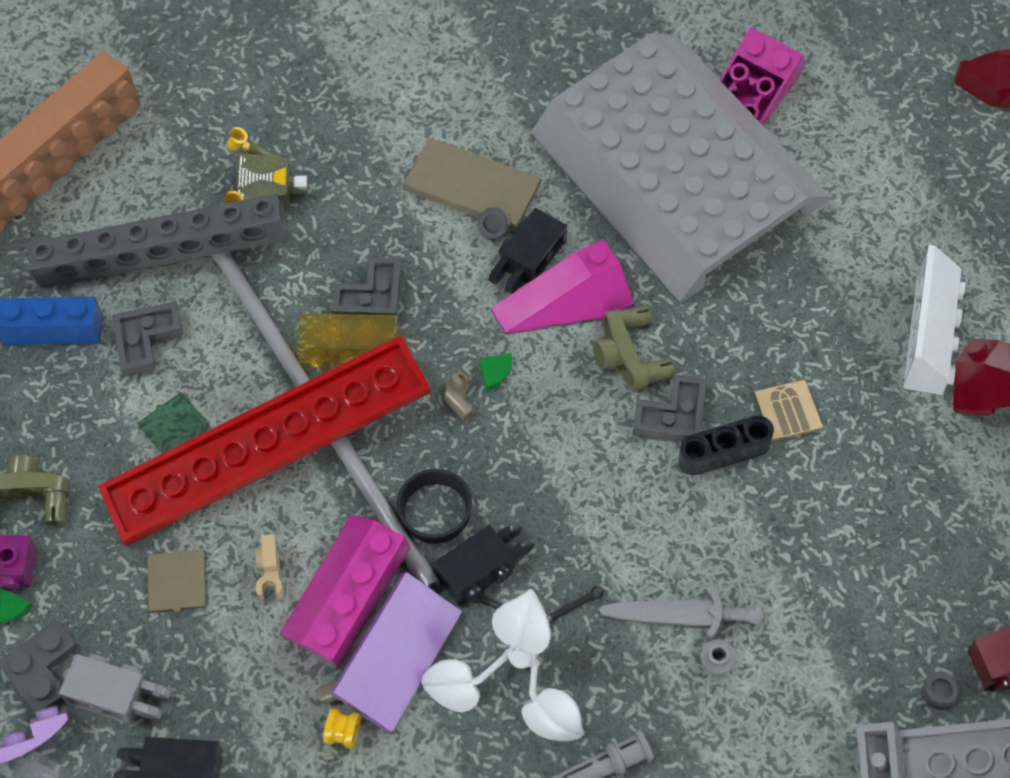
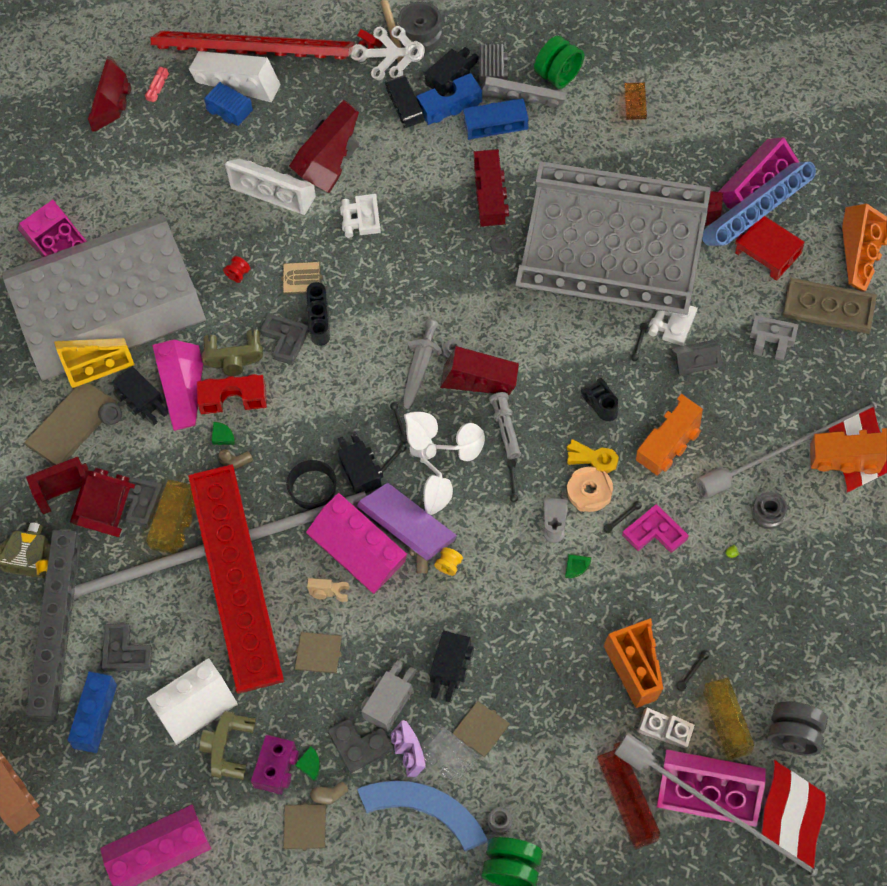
camera: 75 degrees left, 0 degrees up
(78, 435) = (192, 701): none -> white slope
(173, 423) = (202, 640): clear green piece -> none
(339, 244) = (101, 501): none -> dark red panel
(351, 172) = (56, 481): none -> dark red panel
(553, 339) = (213, 392): none -> red arch
(566, 174) = (93, 358): none -> yellow wedge
(677, 706) = (478, 372): none -> dark red wedge
(771, 317) = (236, 269): none -> red wheel
(927, 473) = (367, 214): none -> white plate

